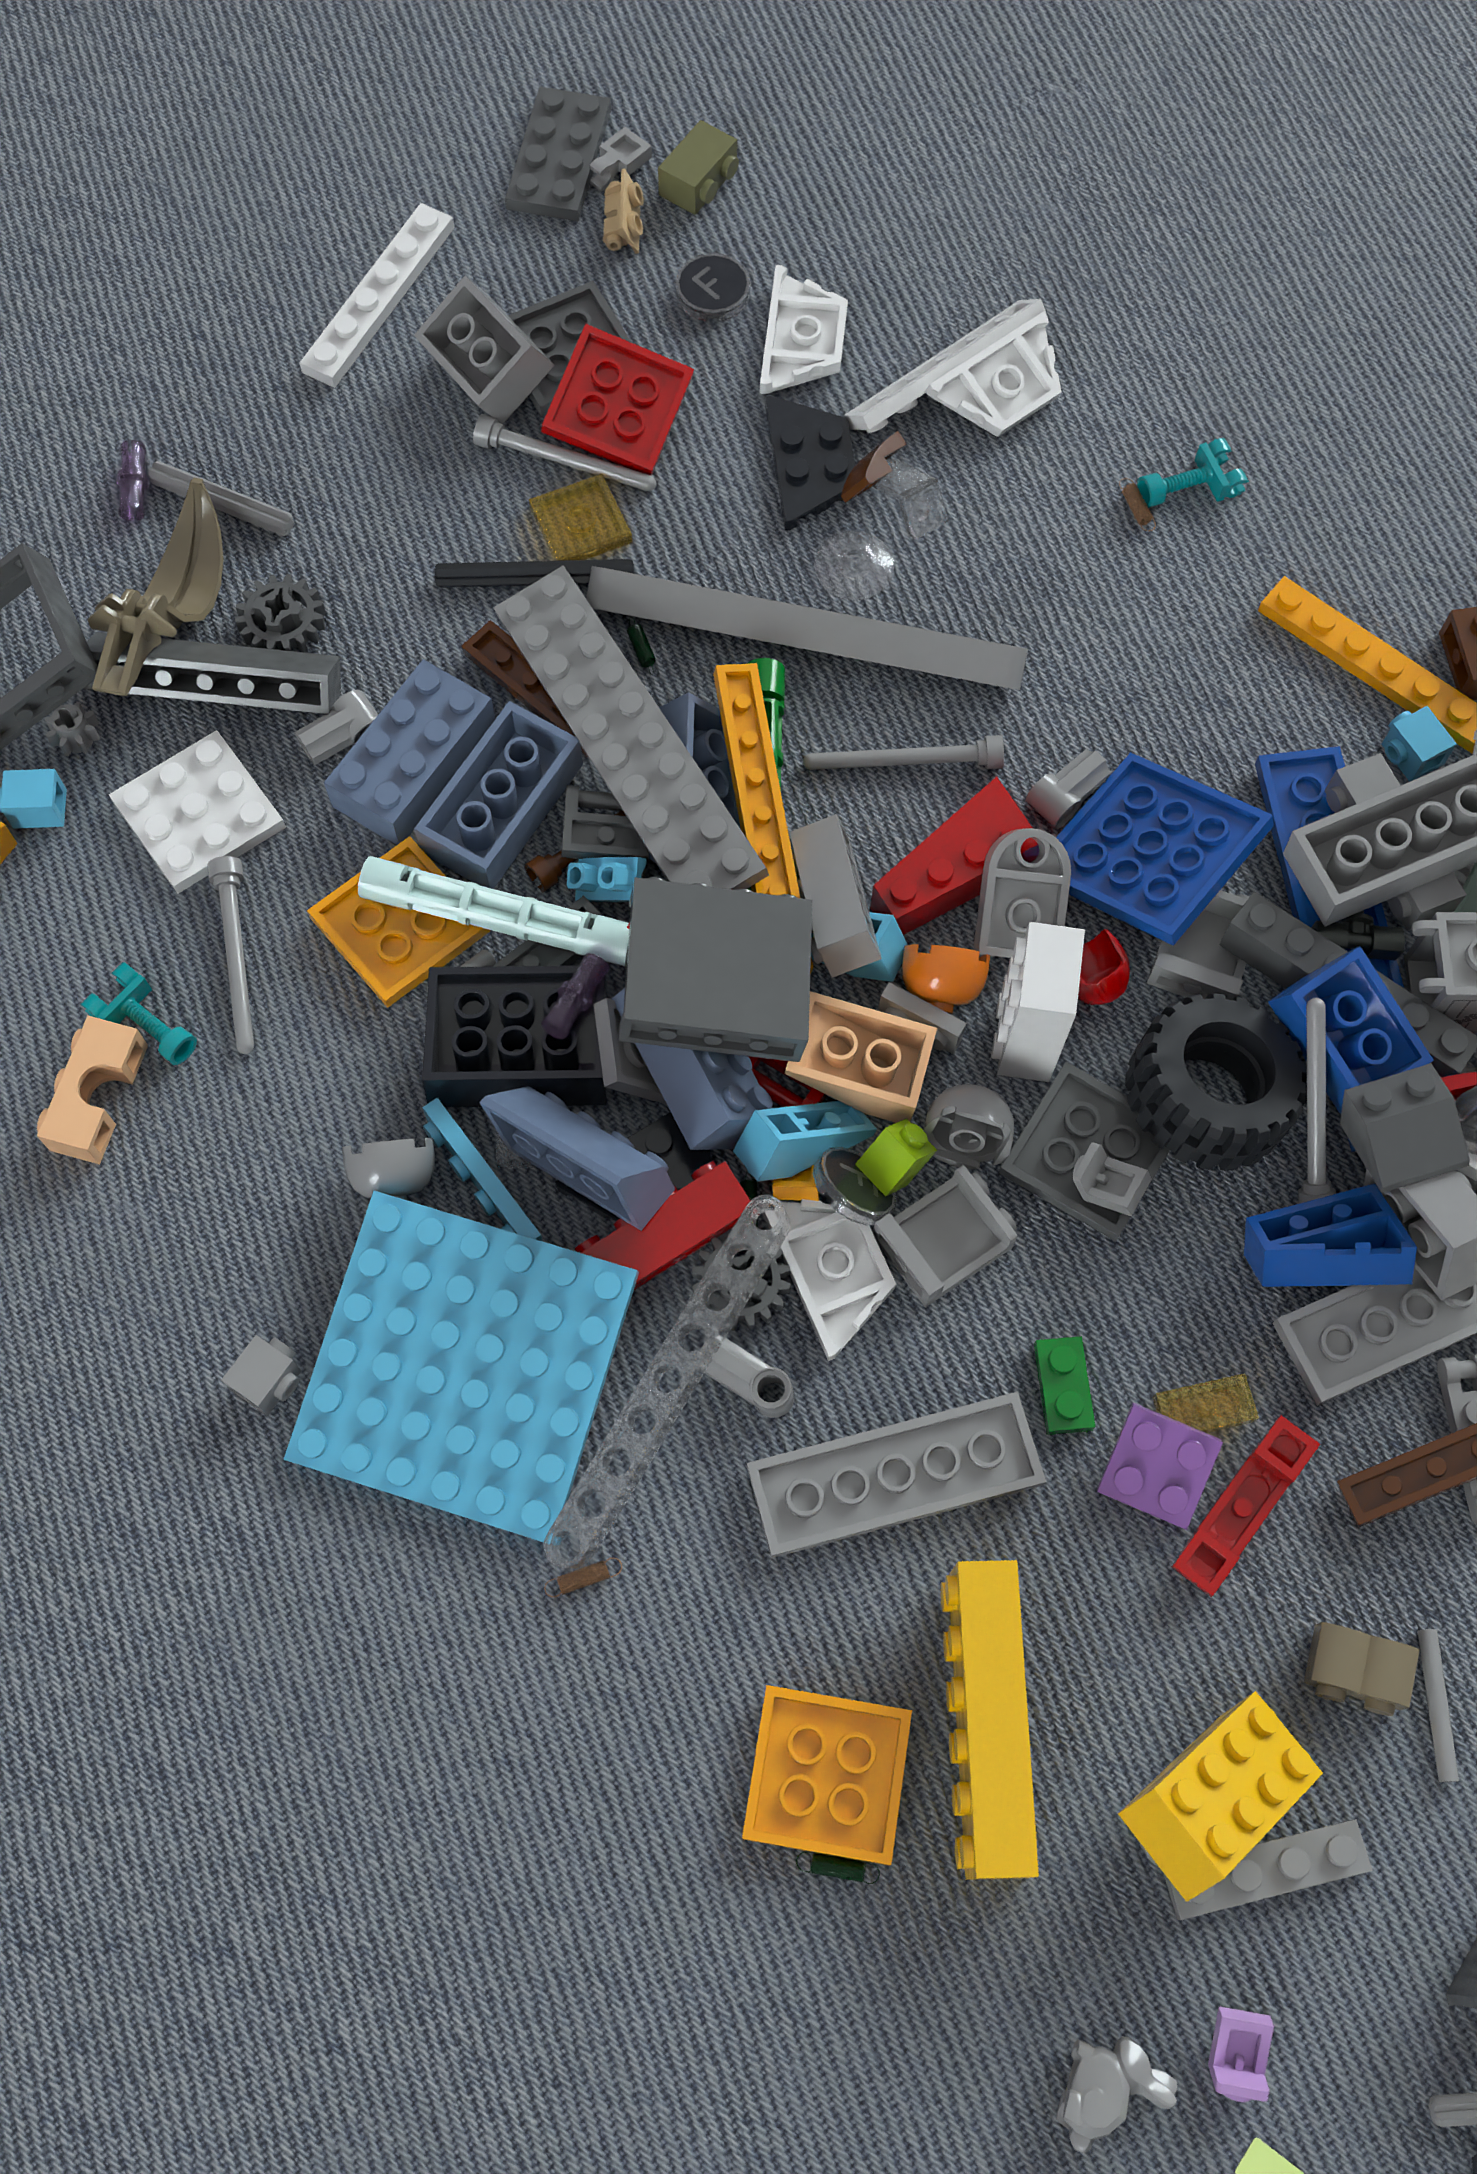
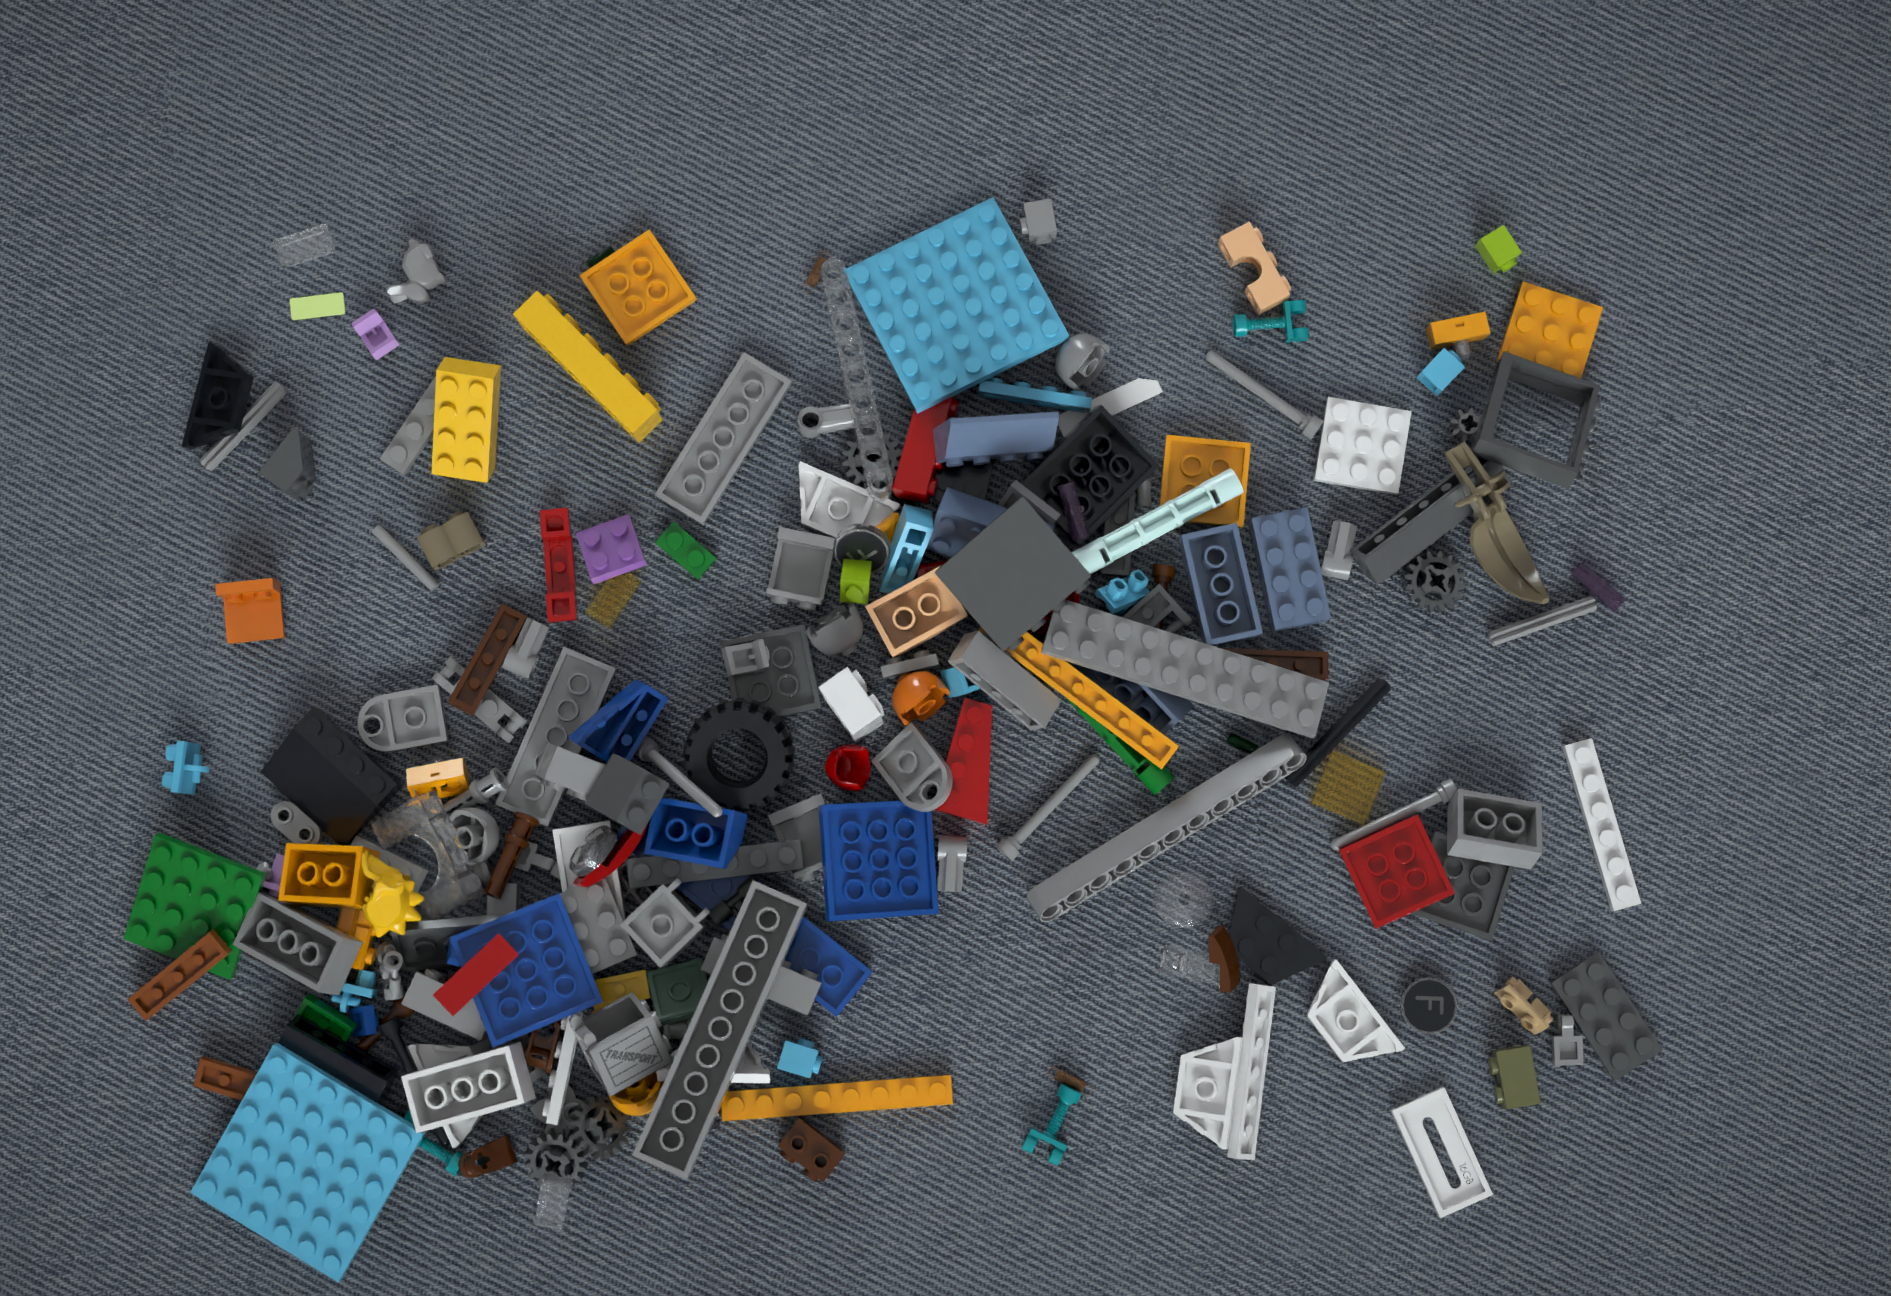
camera: 135 degrees right, 15 degrees up
(403, 1100) = (1114, 401): none -> white sticker
(830, 130) = (1439, 1108): none -> white piece
(1375, 1440) = (524, 654): none -> light grey piece

